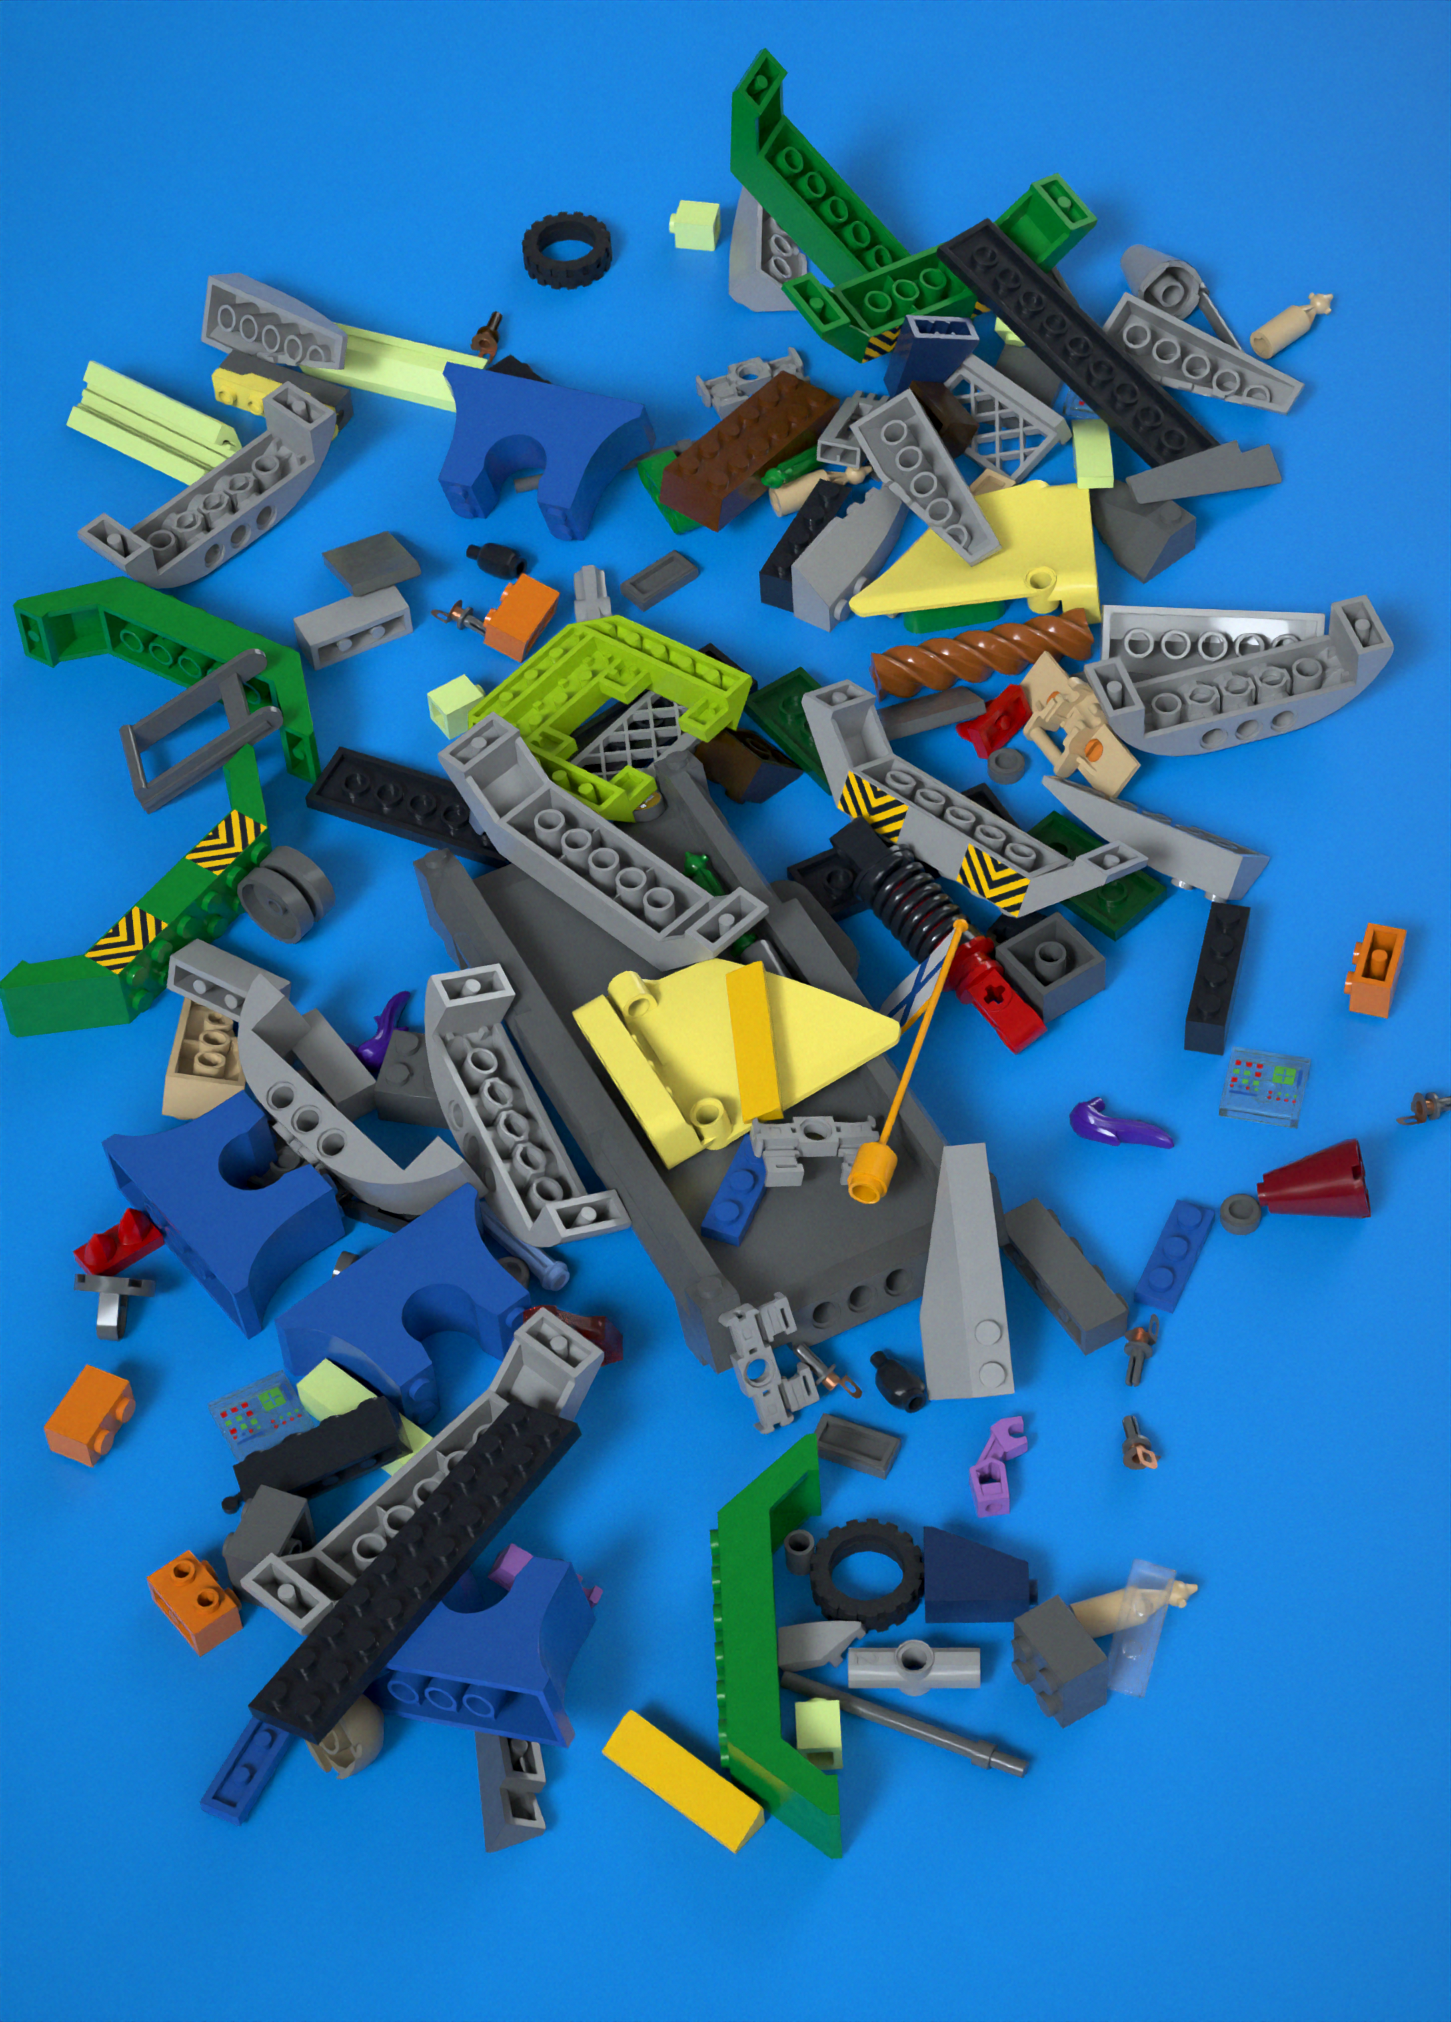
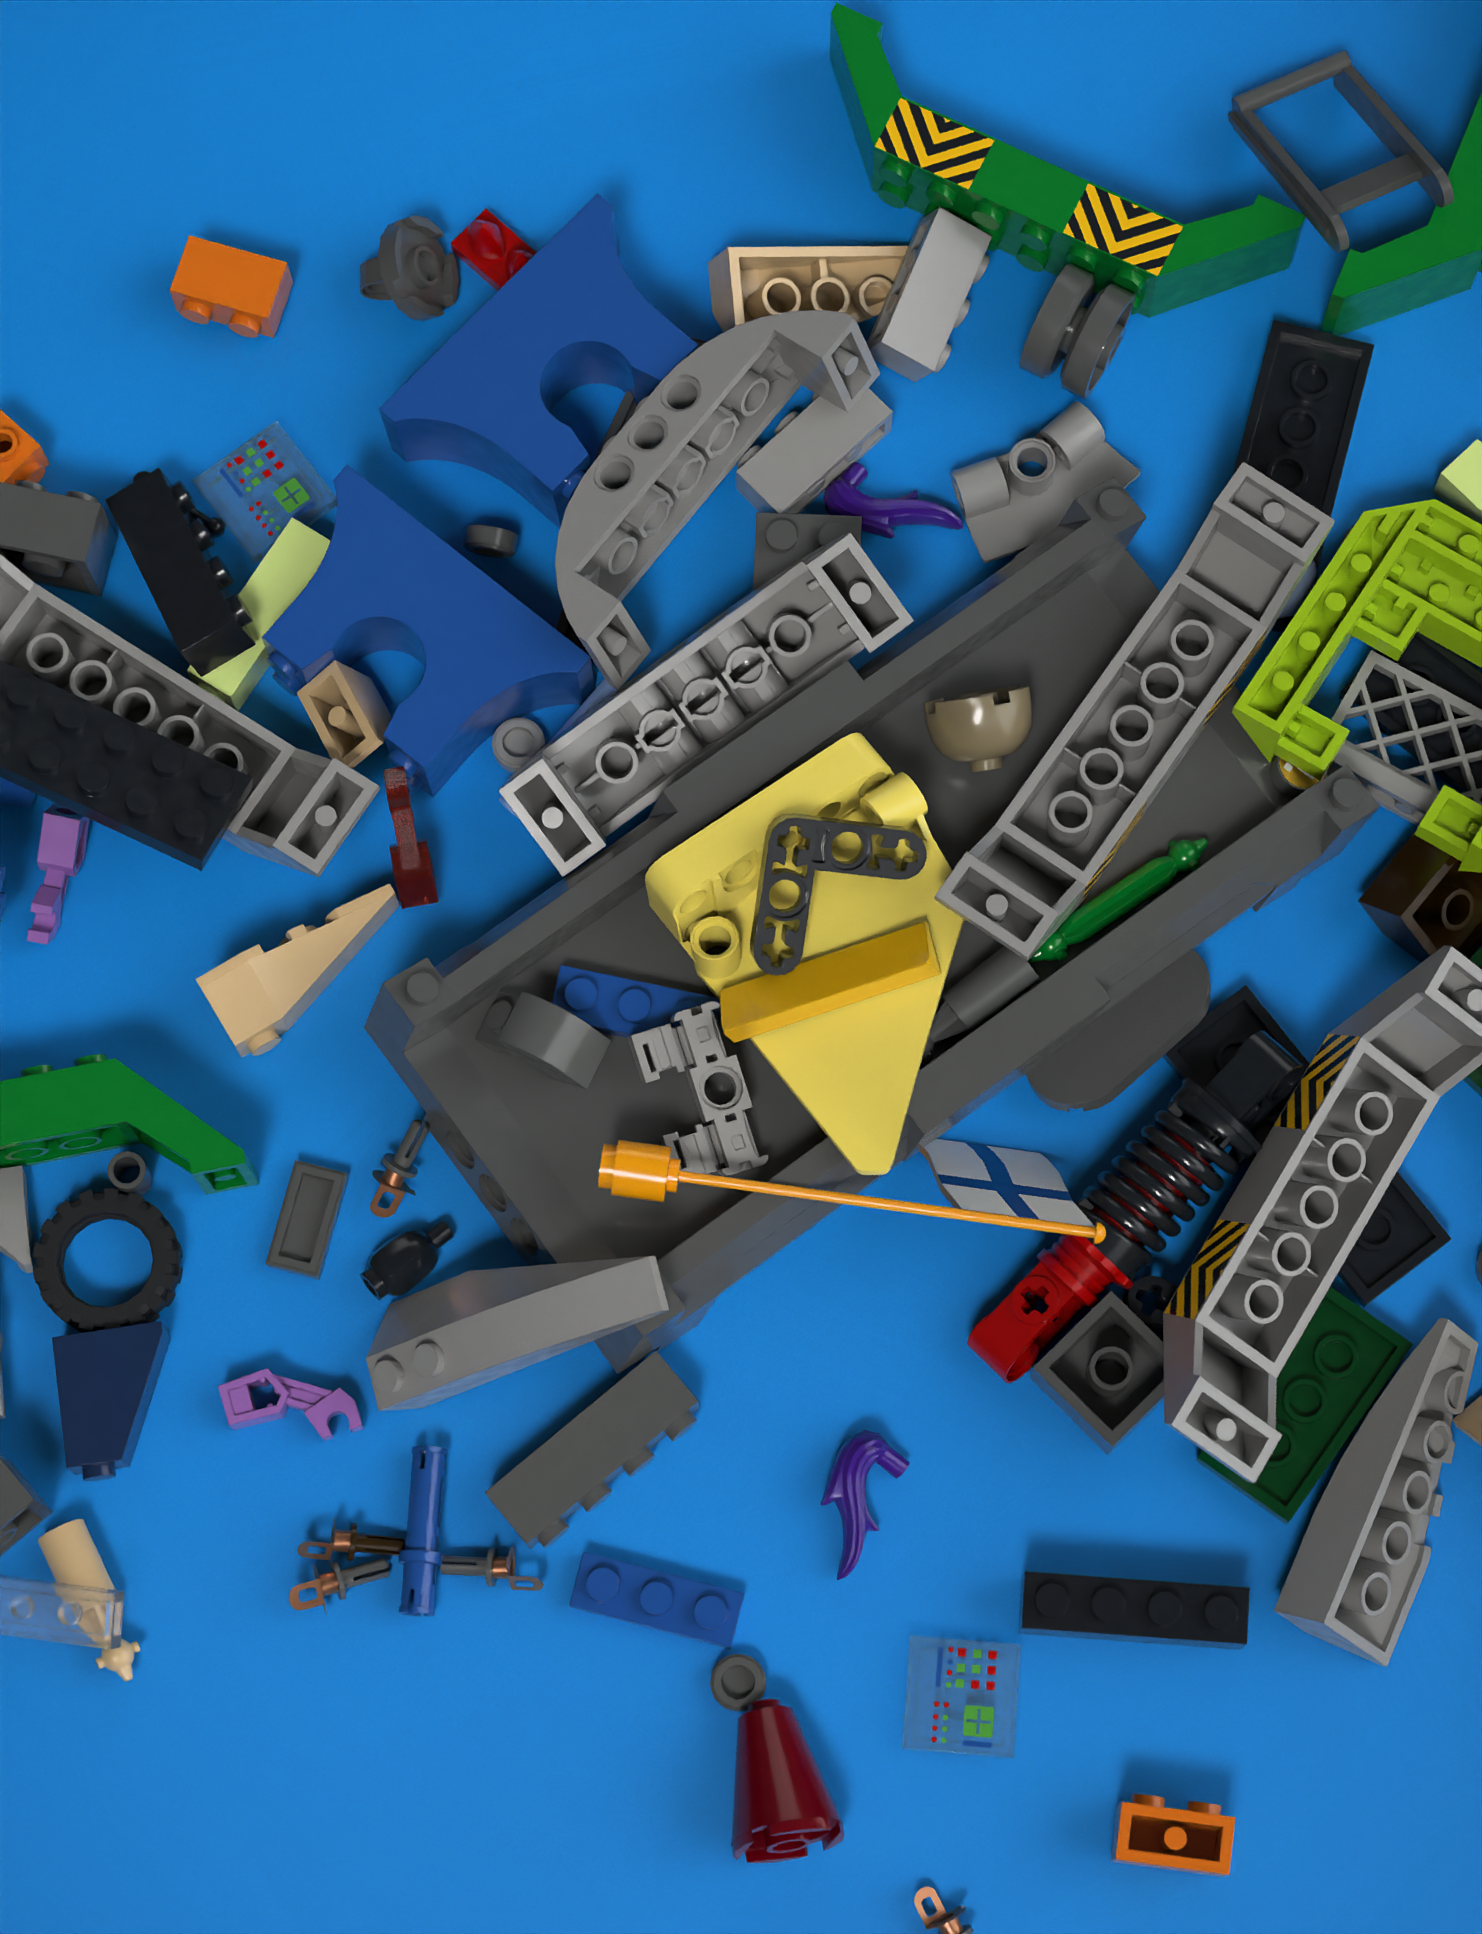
camera: 80 degrees right, 25 degrees up
(393, 941) = (1015, 510): none -> light grey panel
(470, 1359) = (346, 712): none -> tan slope
(576, 956) = (980, 725): none -> dark tan cylinder
(664, 1033) = (817, 856): none -> black beam
(669, 1435) = (267, 992): none -> tan wedge
(749, 1337) = (382, 1064): light grey piece -> none
(752, 1232) = (544, 1037): none -> dark grey brick
(1106, 1389) = (423, 1532): none -> blue pin
(1108, 1436) = (352, 1542): none -> piece

